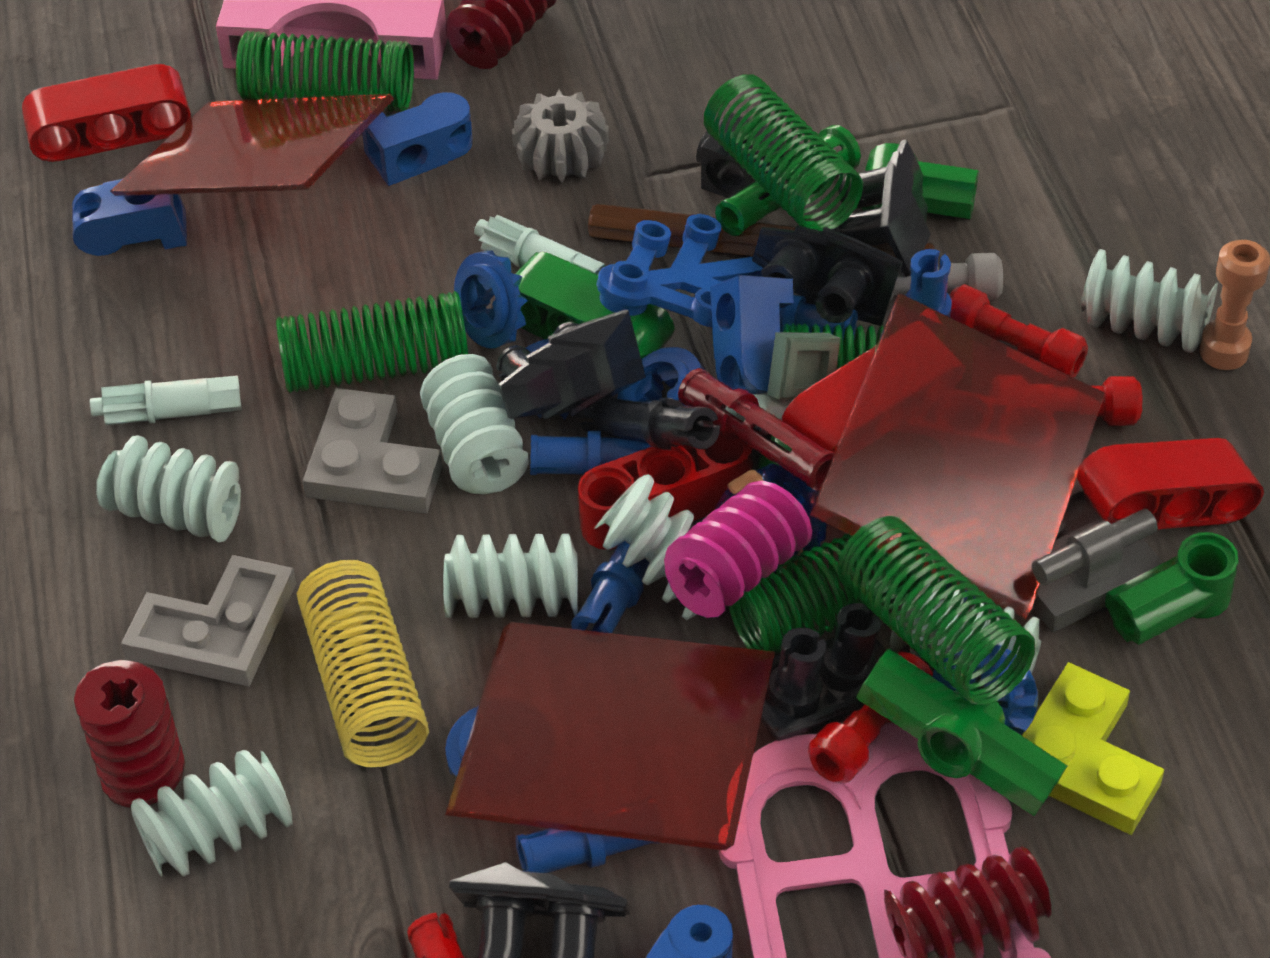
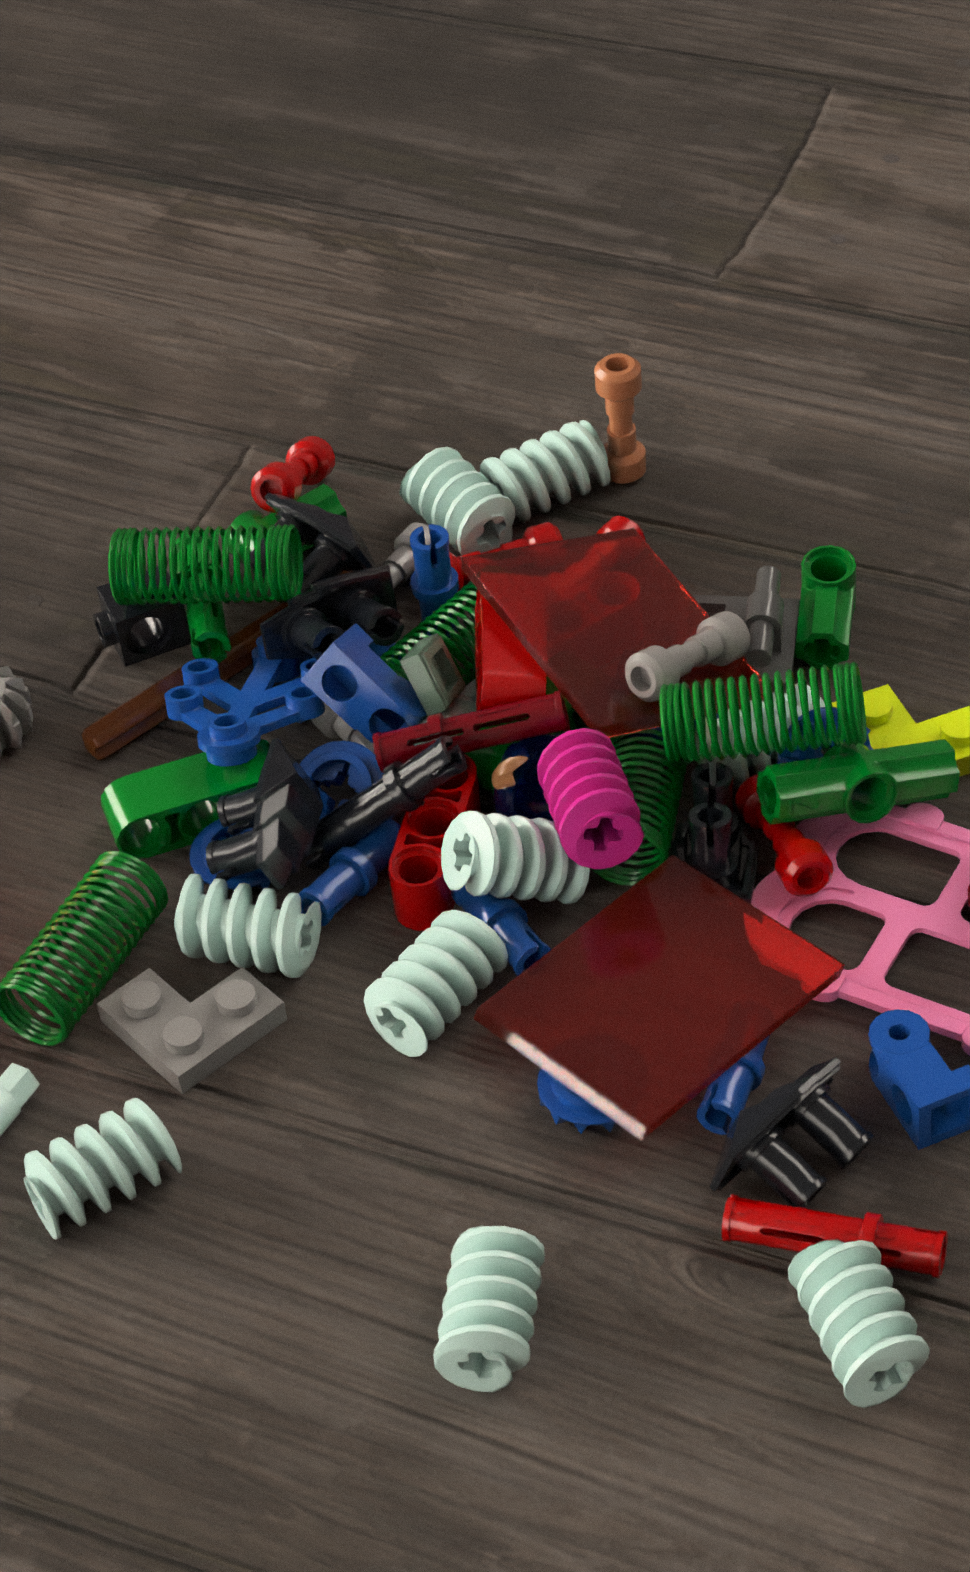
camera: 50 degrees left, 5 degrees down
(129, 731) = (366, 1312): dark red piece -> none
(217, 638) = (290, 1219): light grey plate -> none
(351, 620) = (515, 1144): light yellow piece -> none
(477, 282) = (112, 817): blue gear -> none
(520, 243) = (71, 801): light aqua piece -> none
(1009, 148) = (306, 464): none -> red piece
(1022, 530) = (717, 641): none -> light grey piece
(1050, 268) = (459, 499): none -> light aqua piece
(1175, 480) = (733, 549): red beam -> none

